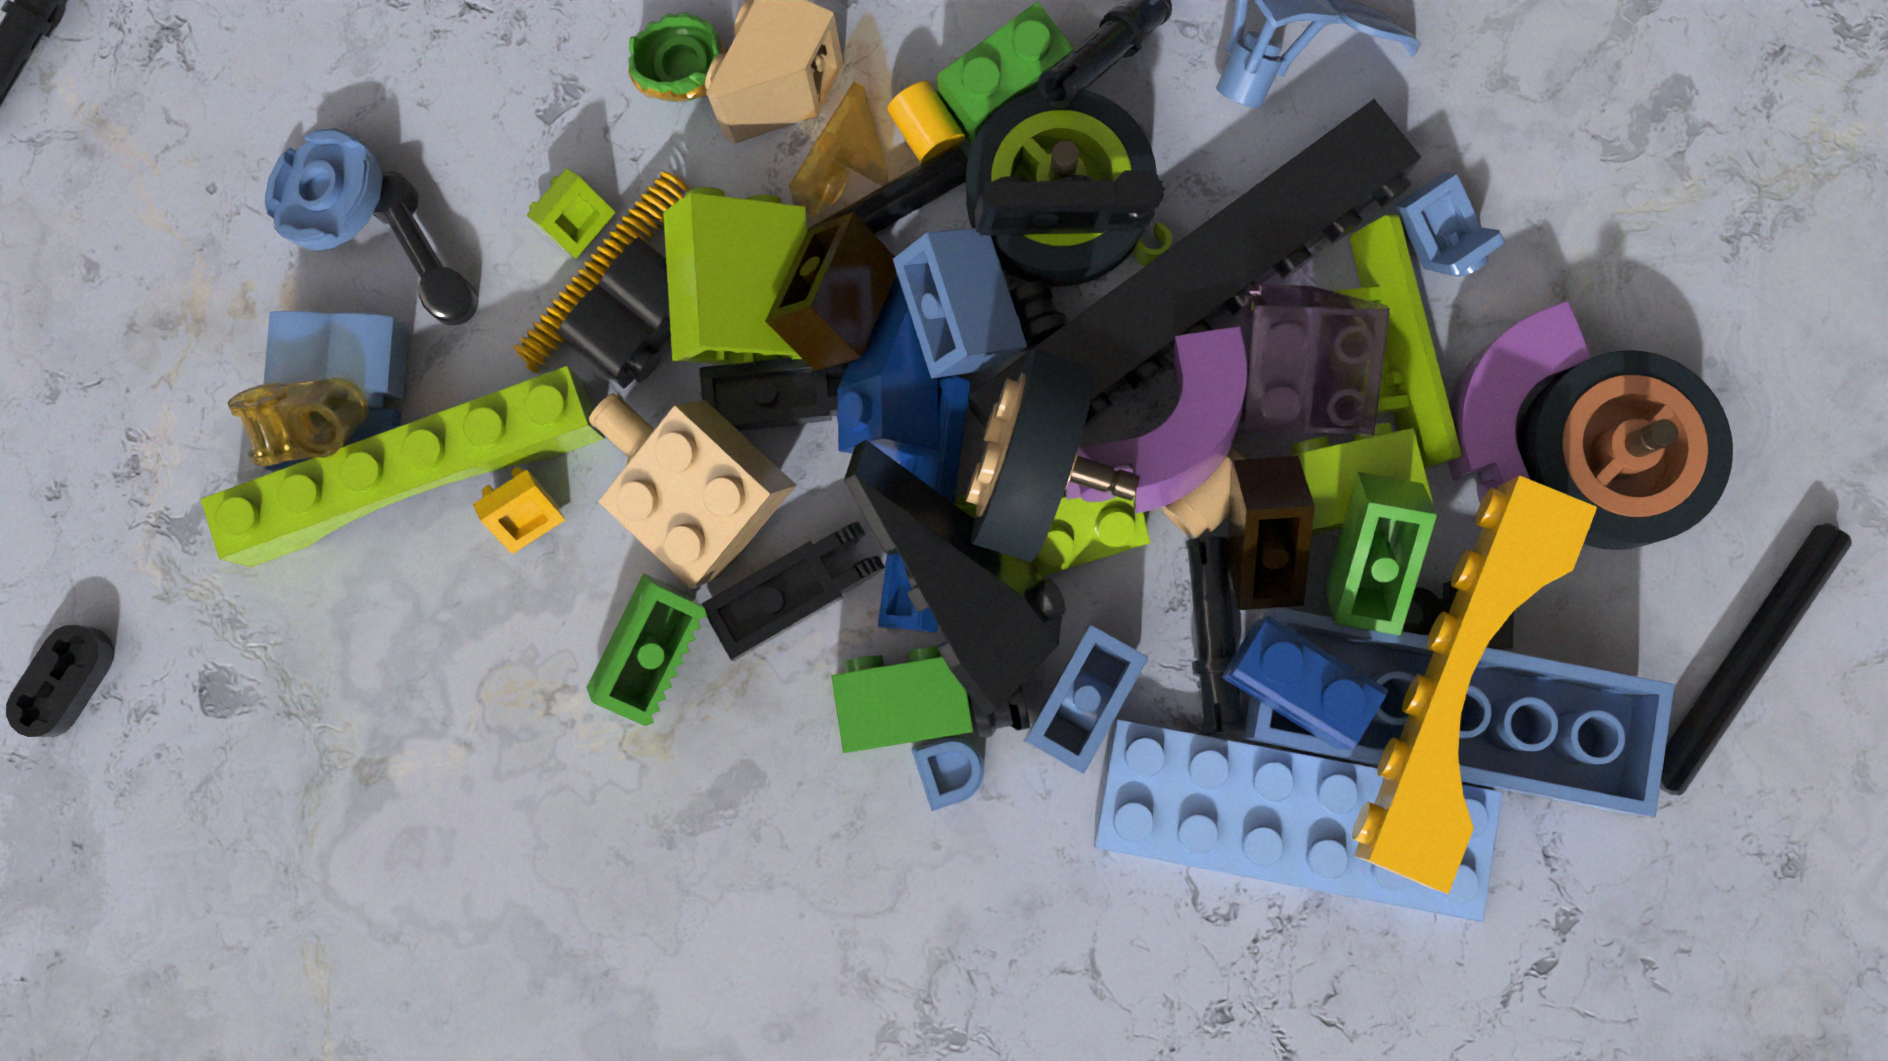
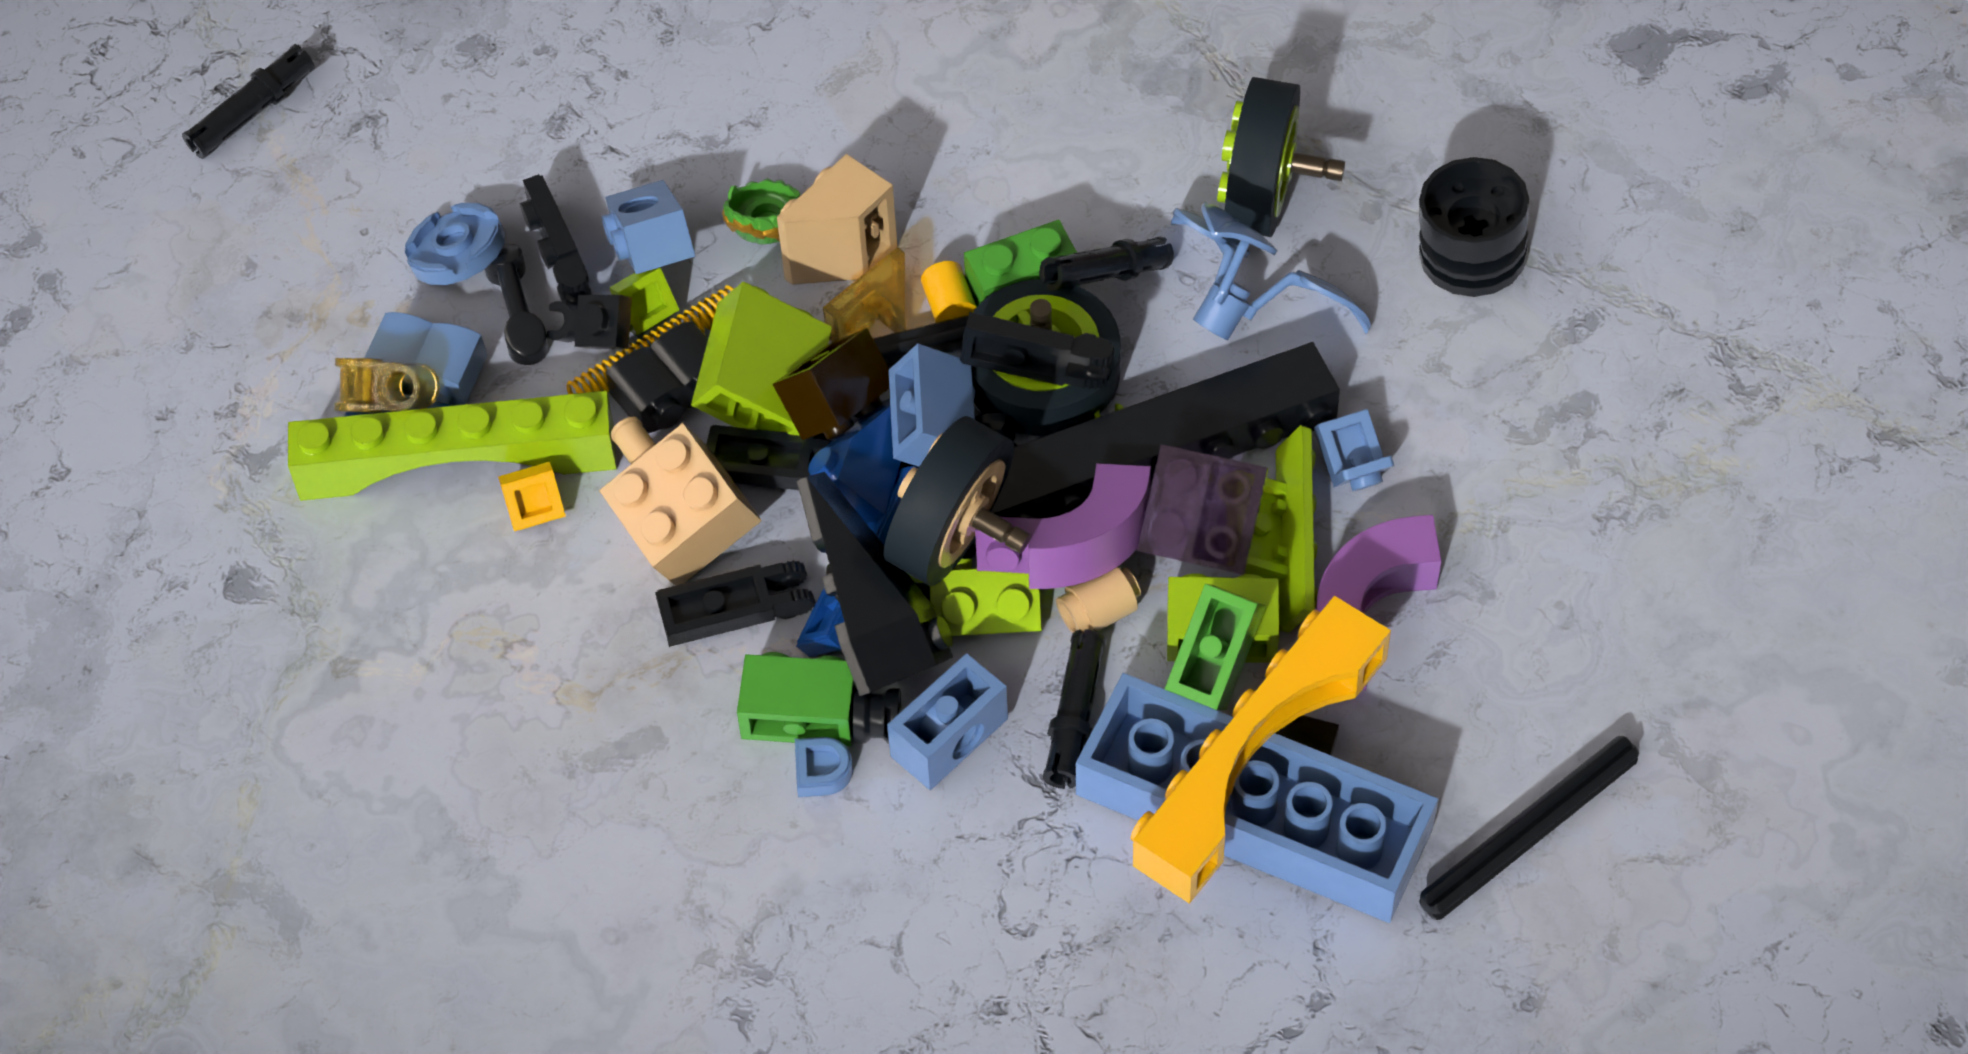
camera: 10 degrees right, 25 degrees down
(59, 680) = (121, 544): black beam -> none
(445, 164) = (557, 245): none -> black hinge
(525, 260) = (594, 322): none -> black plate
(547, 123) = (647, 227): none -> medium blue brick
(645, 650) = (601, 608): bright green brick -> none
(1269, 532) = (1133, 622): dark brown brick -> none
(1269, 818) = (1082, 863): light blue plate -> none
(1305, 684) = (1121, 714): blue brick -> none
(1634, 442) = (1457, 638): wheel -> none

